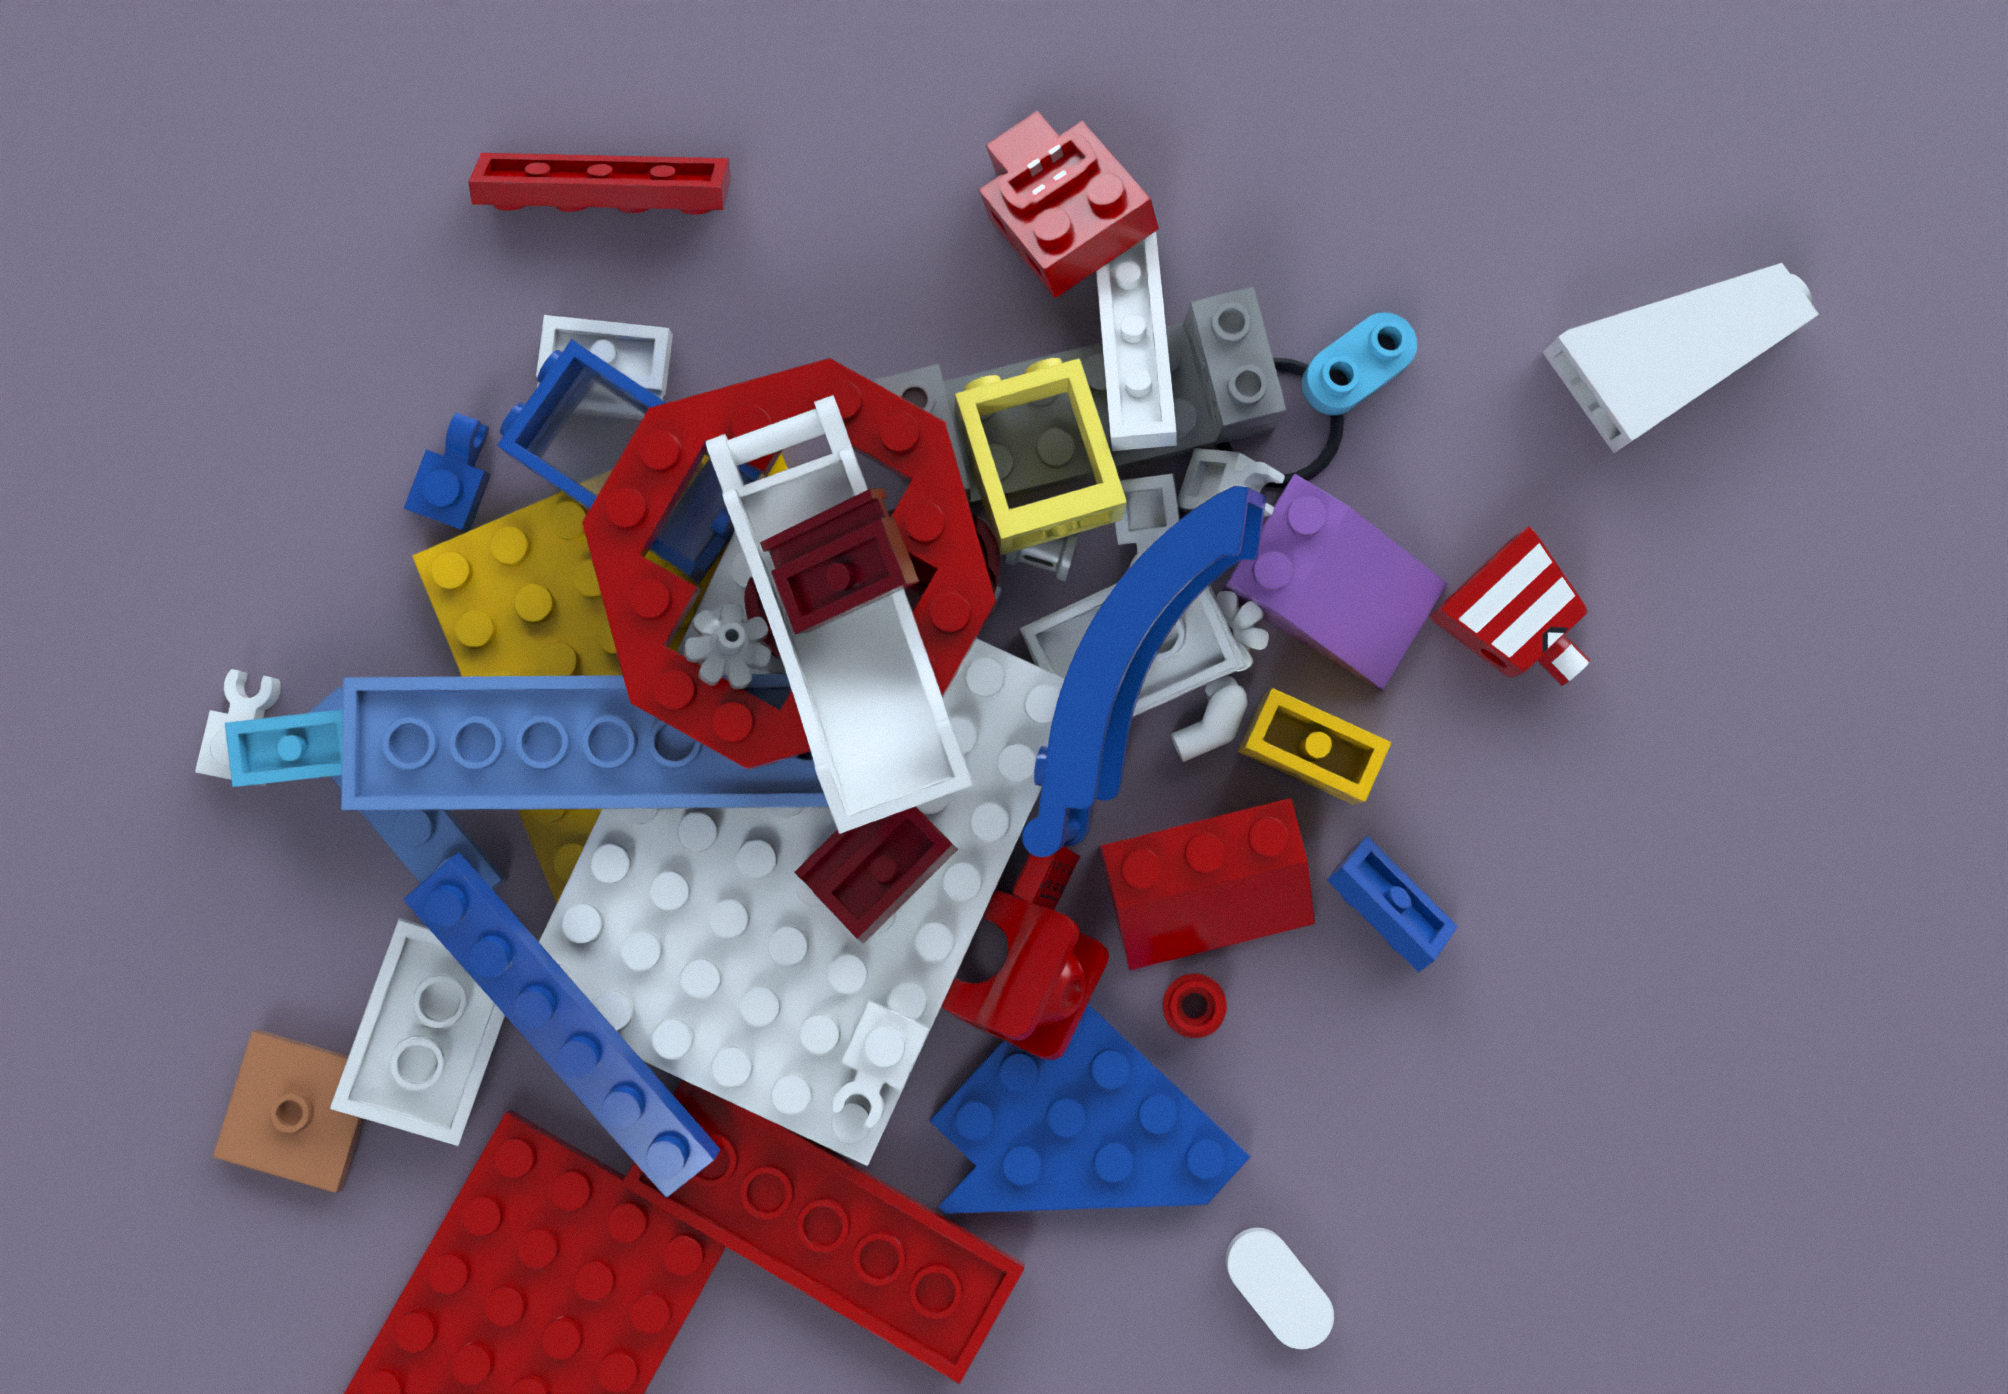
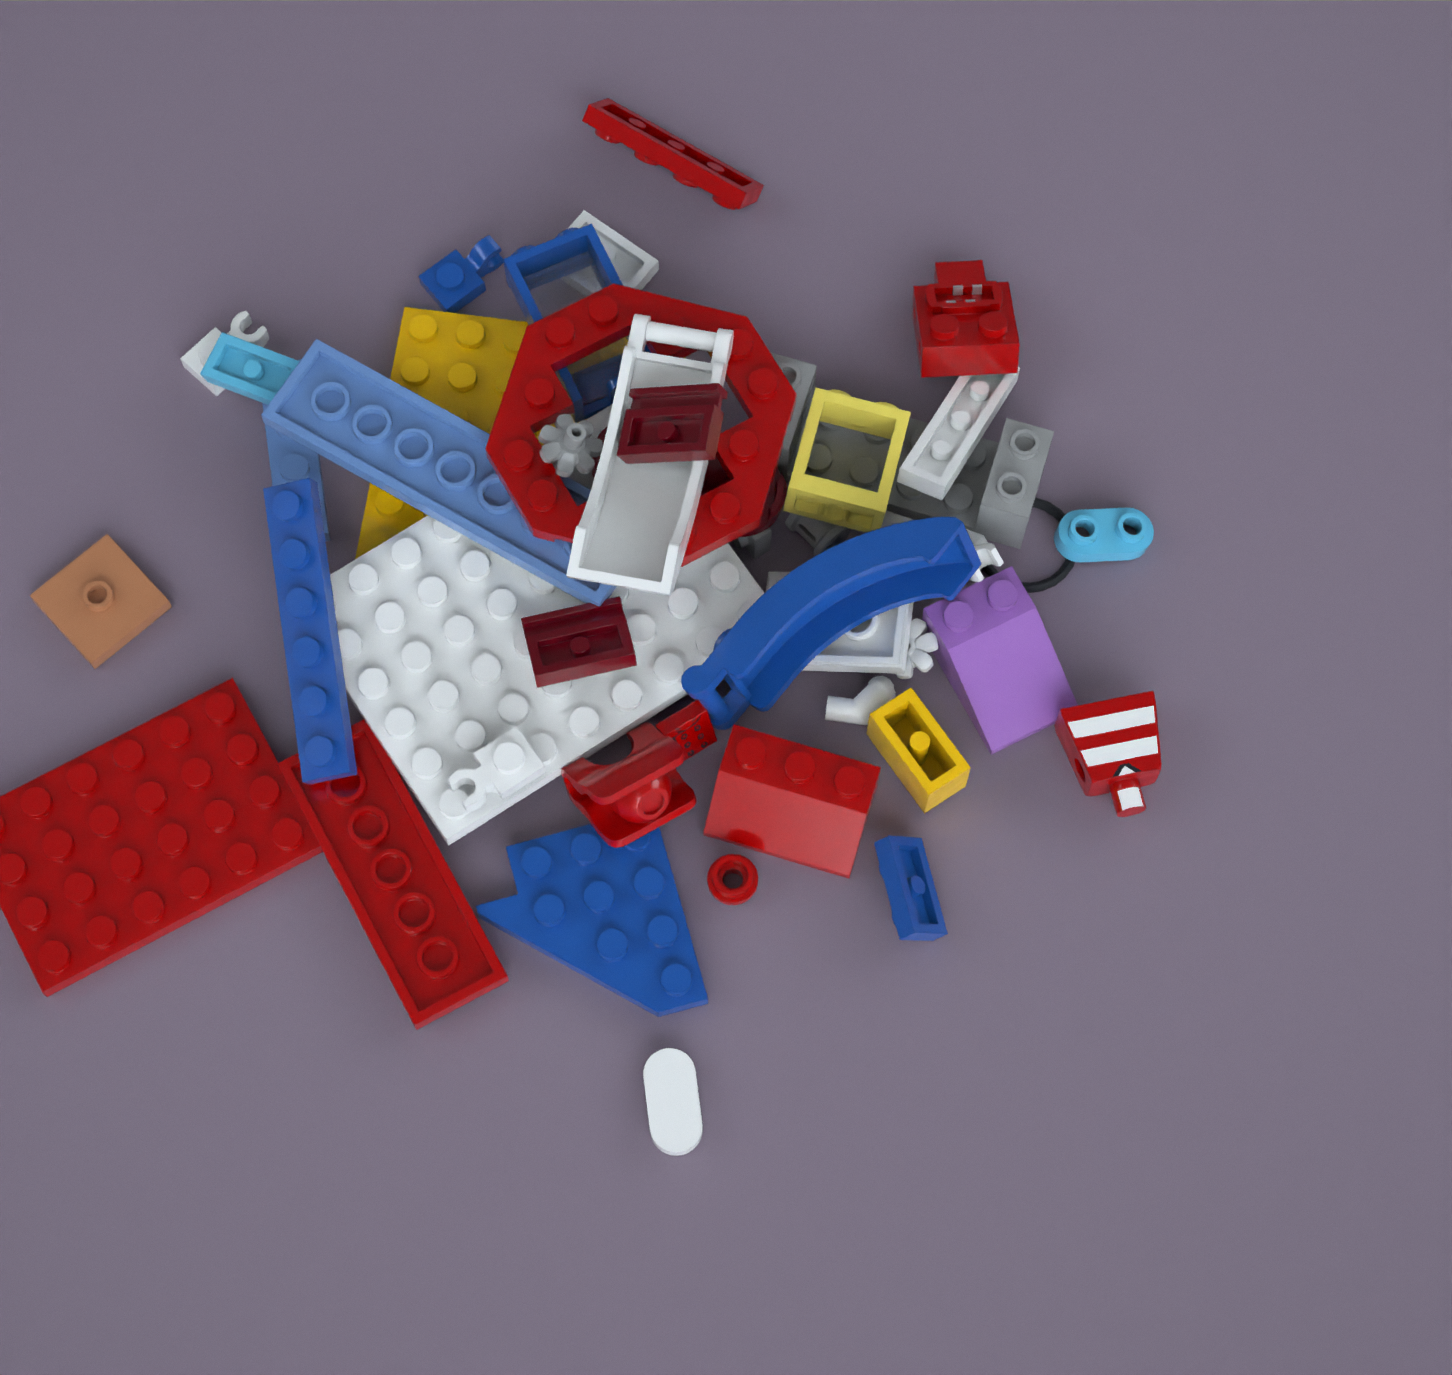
camera: 30 degrees right, 15 degrees down
(420, 1041) = (212, 596): white plate -> none
(1665, 354) = (1329, 644): white slope -> none

